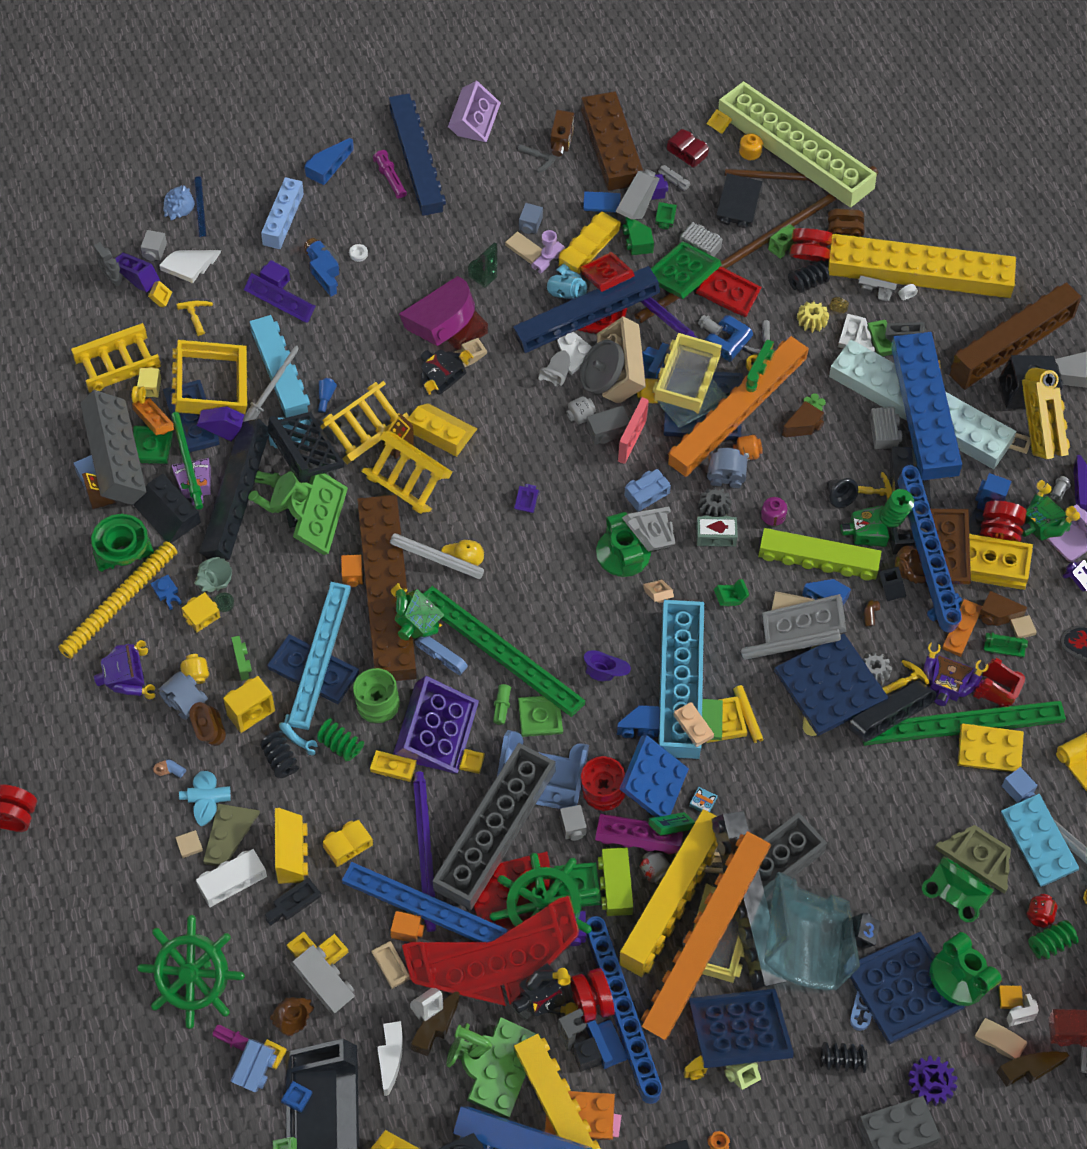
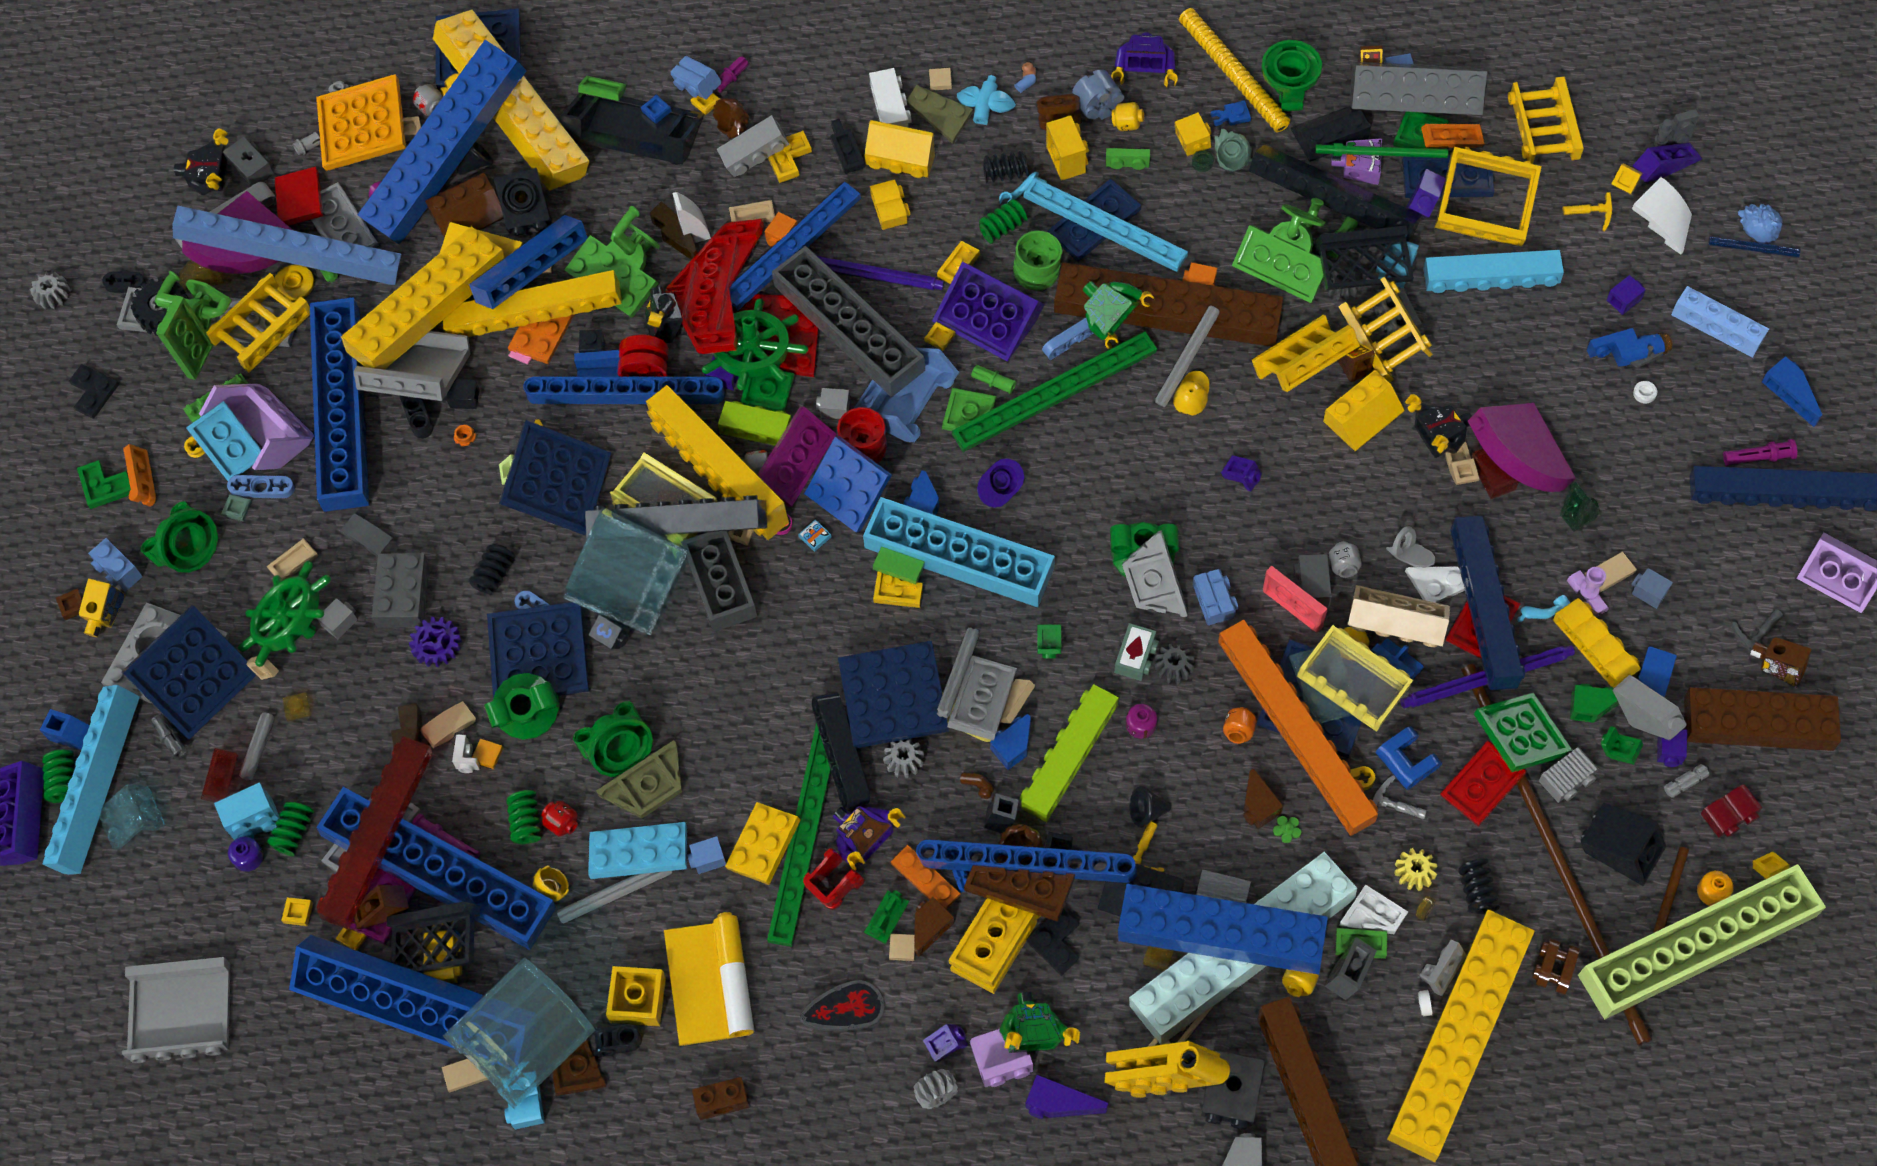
camera: 115 degrees right, 5 degrees up
(138, 394) = (1484, 127): yellow bush -> none
(151, 380) = (1505, 143): light yellow brick -> none
(153, 245) = (1700, 184): light grey brick -> none
(191, 971) = (799, 41): green piece -> none
(255, 409) = (1440, 236): light grey piece -> none
(279, 297) = (1592, 293): dark purple plate -> none
(326, 390) = (1449, 311): blue cone -> none
(390, 1055) = (658, 186): white slope -> none
(566, 287) = (1528, 592): medium azure piece -> none
(568, 1028) = (614, 329): dark grey hinge -> none
(602, 366) = (1394, 591): dark grey piece -> none
(606, 271) = (1533, 635): red tile -> none
(658, 591) = (1074, 562): light nougat plate -> none
(671, 823) = (795, 490): green tile -> none
(693, 724) = (890, 534): light nougat plate -> none
(706, 323) = (1435, 744): light grey pin -> none
(706, 935) = (652, 465): orange brick -> none
(727, 467) = (1213, 686): sand blue brick -> none
(748, 714) = (898, 612): yellow piece -> none
(760, 366) = (1335, 752): green plate -> none
(781, 241) = (1548, 879): bright green leg -> none
(811, 244) = (1521, 894): red wheel -> none
(867, 527) = (1088, 819): green torso -> none
(897, 508) = (1085, 835): green piece -> none
(917, 674) = (879, 800): yellow piece -> none
(992, 489) = (1082, 974): blue brick -> none
(1003, 520) = (1036, 965): red wheel -> none
(1061, 486) = (1074, 1072): light grey pin -> none

